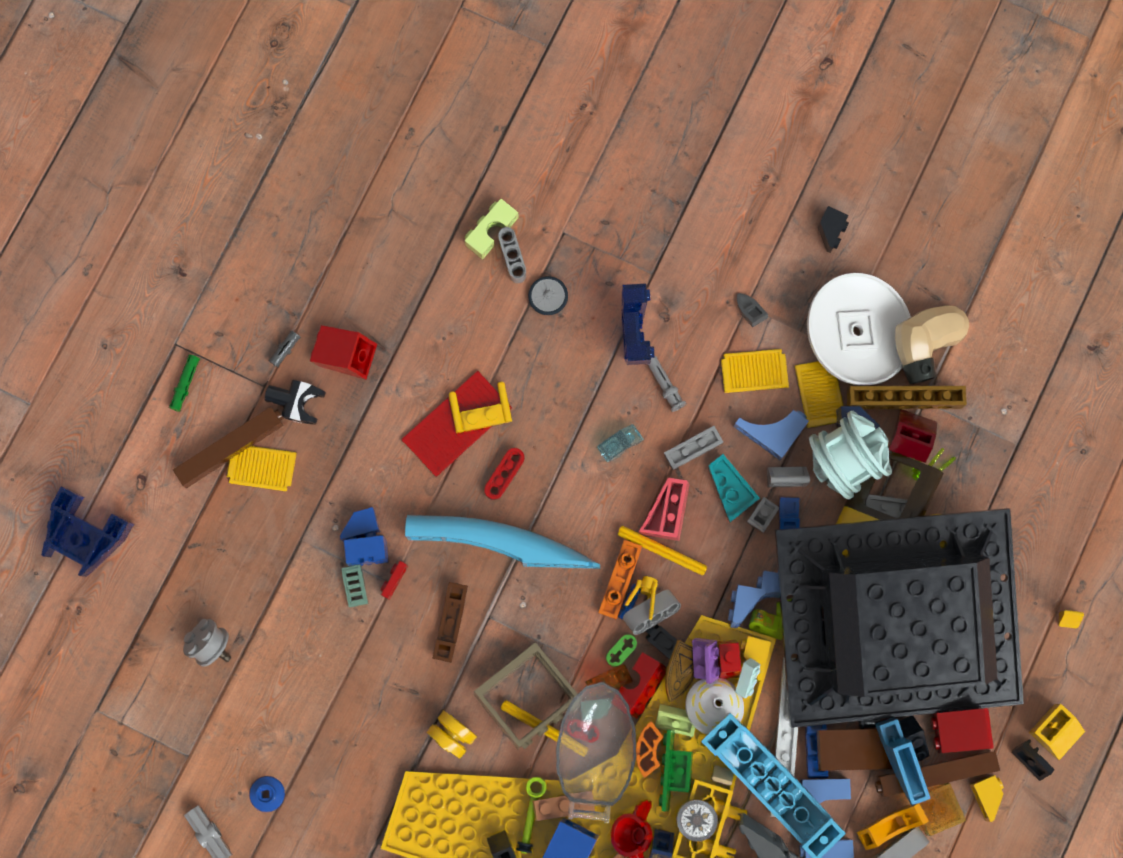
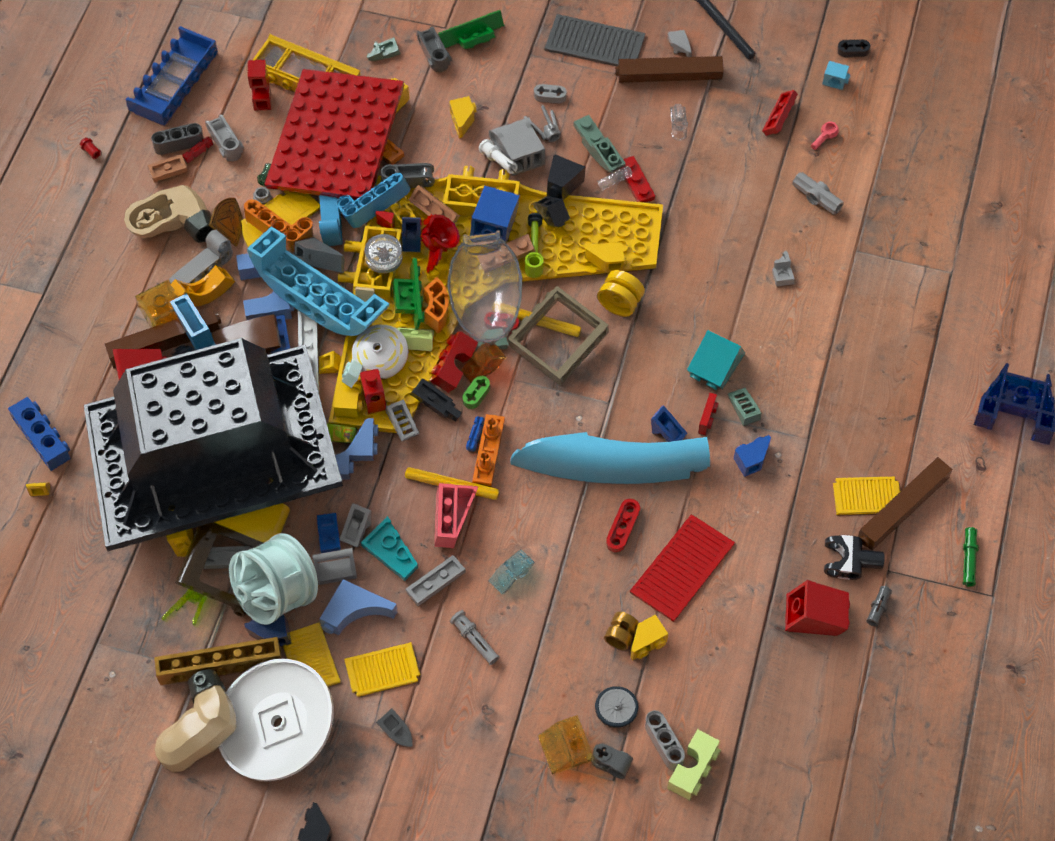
camera: 170 degrees right, 20 degrees down
(206, 643) = (868, 328): light grey wheel -> none
(273, 742) = (782, 271): none -> light grey slope
(276, 794) = (779, 239): blue piece -> none
(366, 551) = (740, 427): blue piece -> none
(370, 639) = (715, 360): none -> teal slope
(437, 569) = (667, 425): none -> blue slope
(450, 622) = (644, 386): reddish brown slope -> none
(456, 783) = (606, 256): none -> yellow slope
(483, 416) = (657, 574): yellow plate -> none
(506, 355) = (648, 636): none -> yellow slope
(535, 361) = (620, 631): none -> pearl gold wheel
(560, 243) = (613, 761): none -> dark grey piece
(601, 264) = (565, 745): none -> clear yellow slope
(632, 314) = (512, 655): clear blue wedge -> none
(648, 587) = (459, 445): yellow plant -> none
(664, 607) = (452, 422): light grey beam -> none
(679, 671) = (416, 374): pearl gold shield -> none
(698, 606) = (401, 405): none -> light grey slope
(705, 659) = (394, 382): medium lavender bracket -> none
(766, 713) = (329, 363): none -> yellow slope
(913, 436) = (206, 620): dark red slope -> none
(988, 795) = (113, 325): yellow slope -> none
(1032, 760) = (66, 357): black plate -> none
(1057, 730) = (51, 388): yellow slope -> none
(1088, 702) = (52, 456): none -> blue brick

